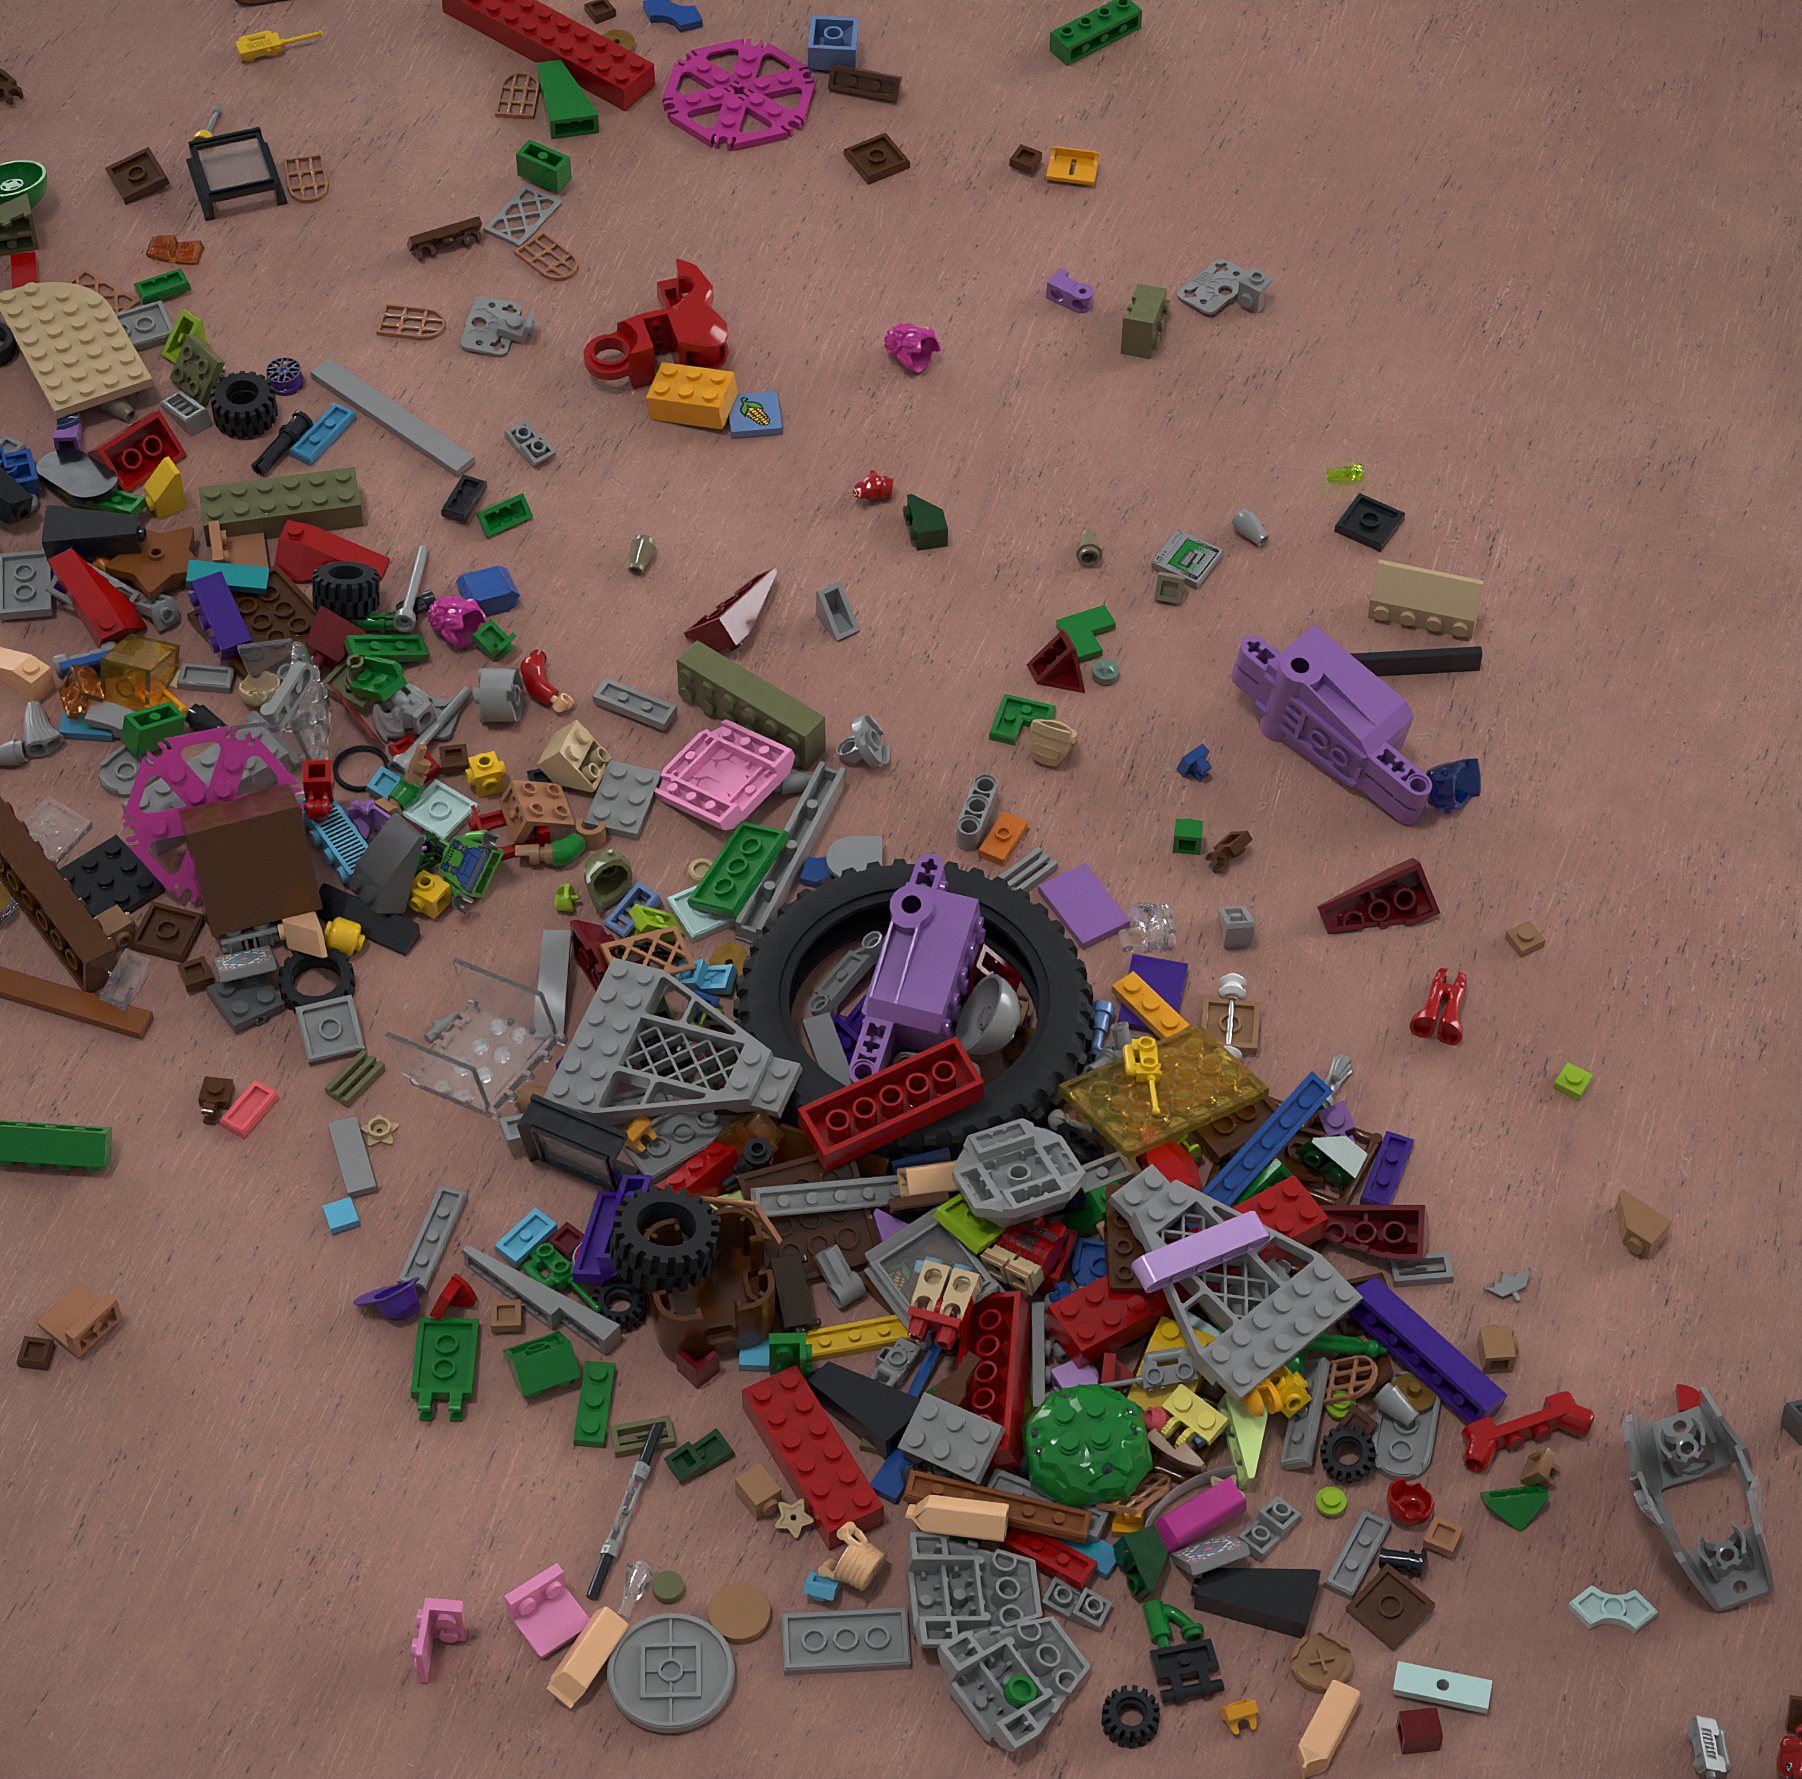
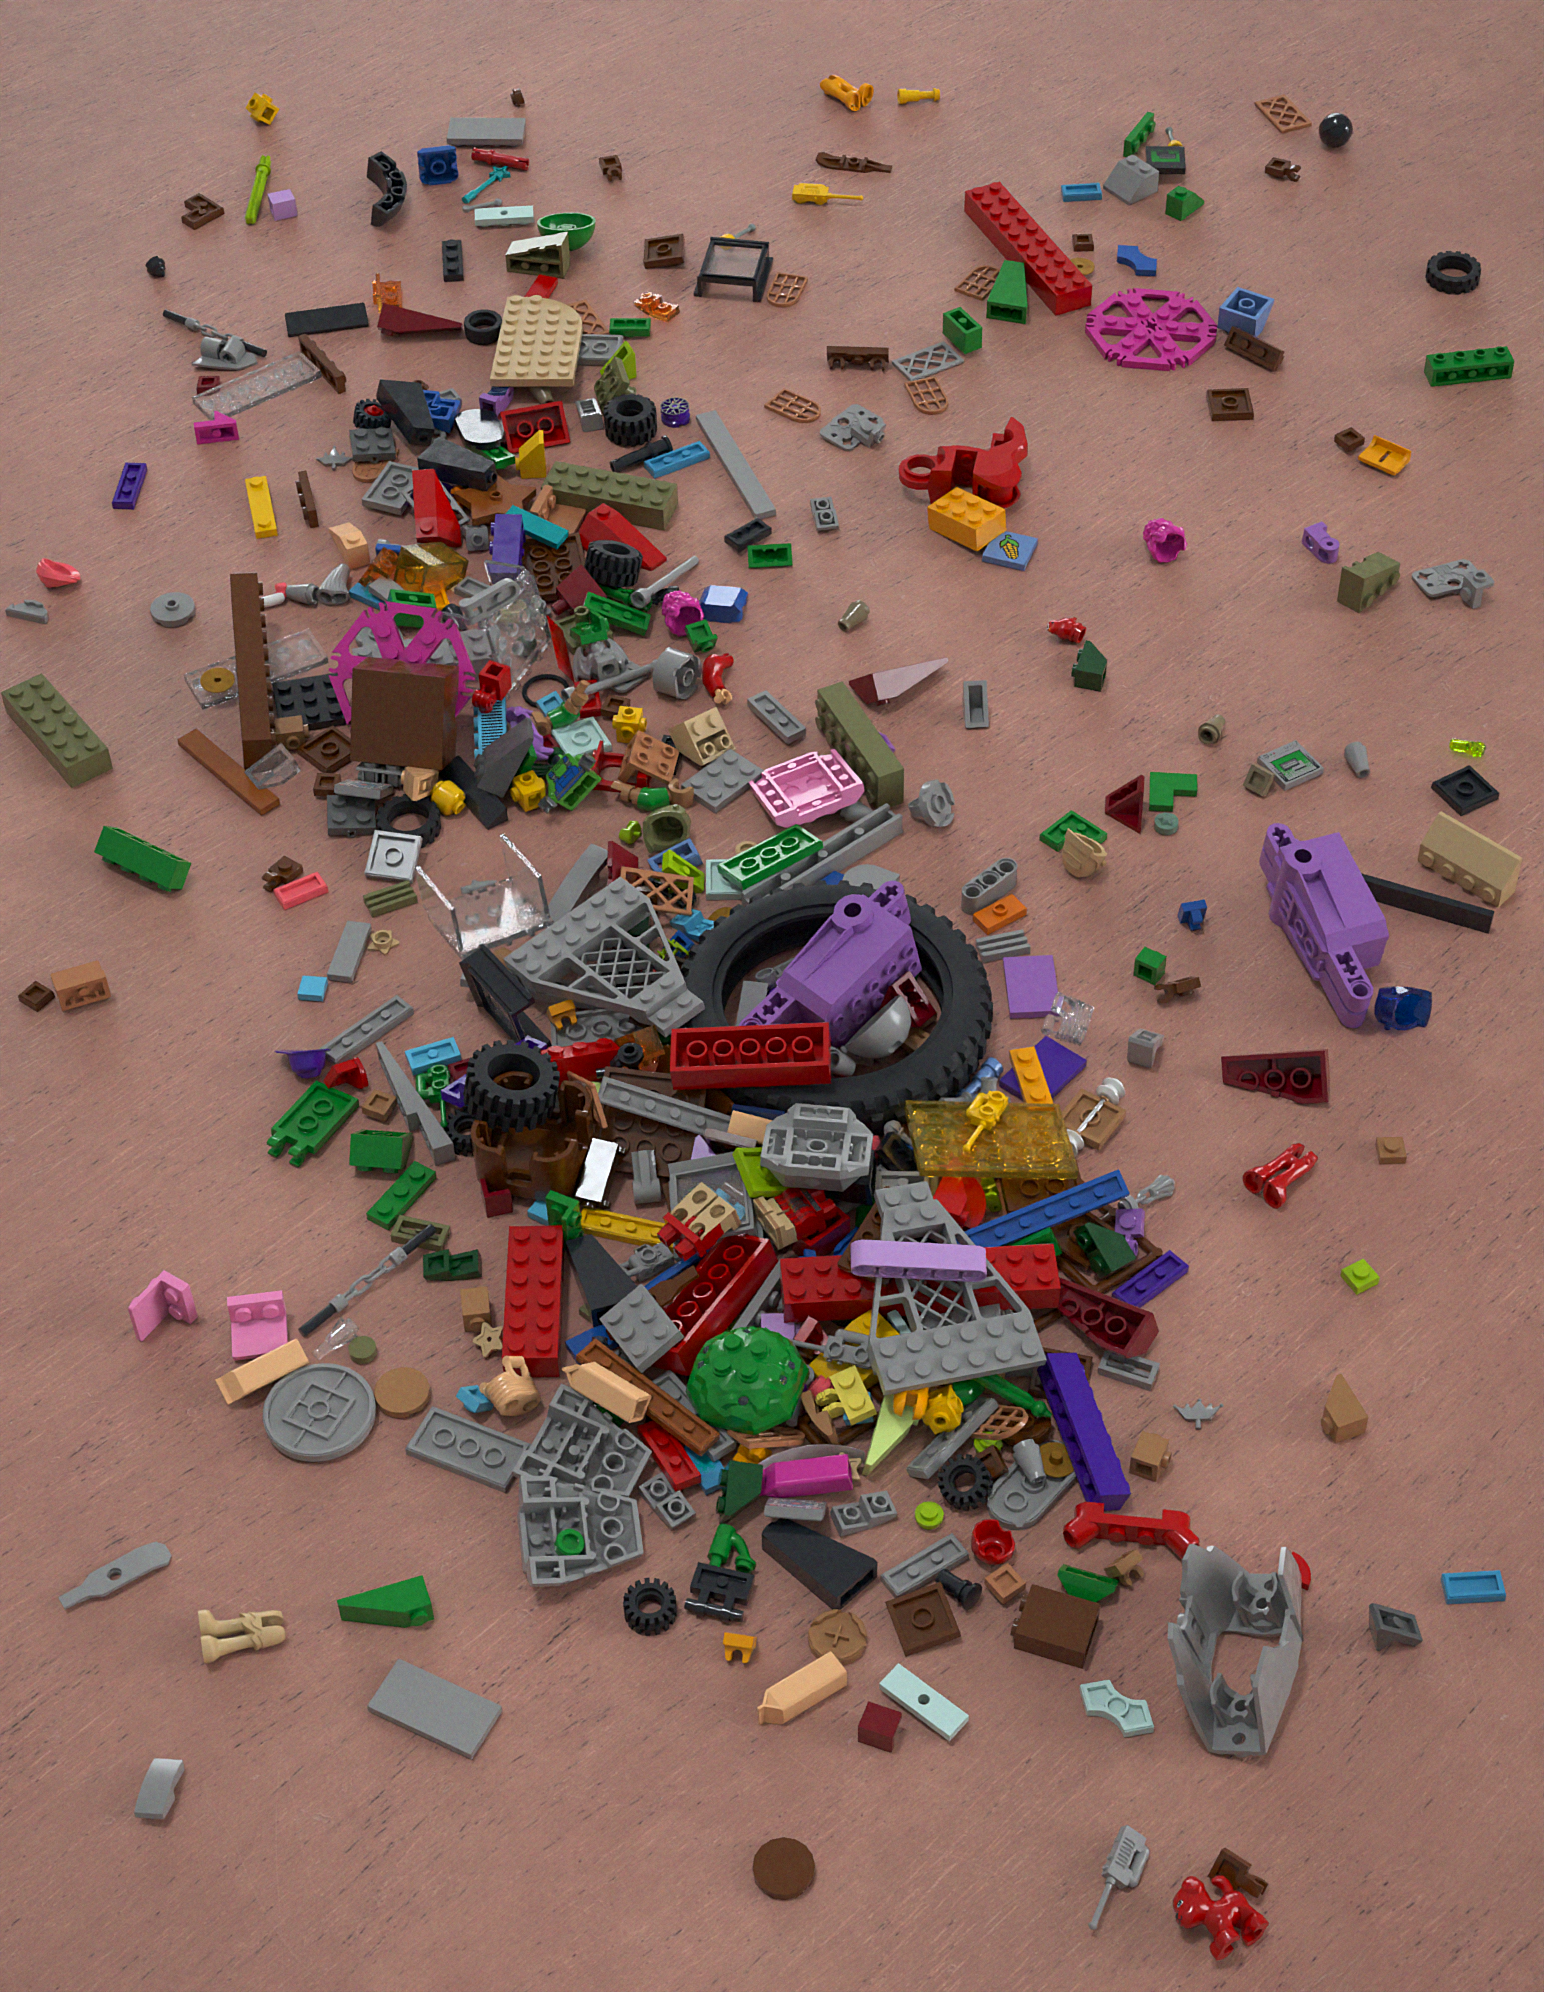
camera: 30 degrees right, 5 degrees down
(1515, 1556) = (1055, 1625): none -> reddish brown brick

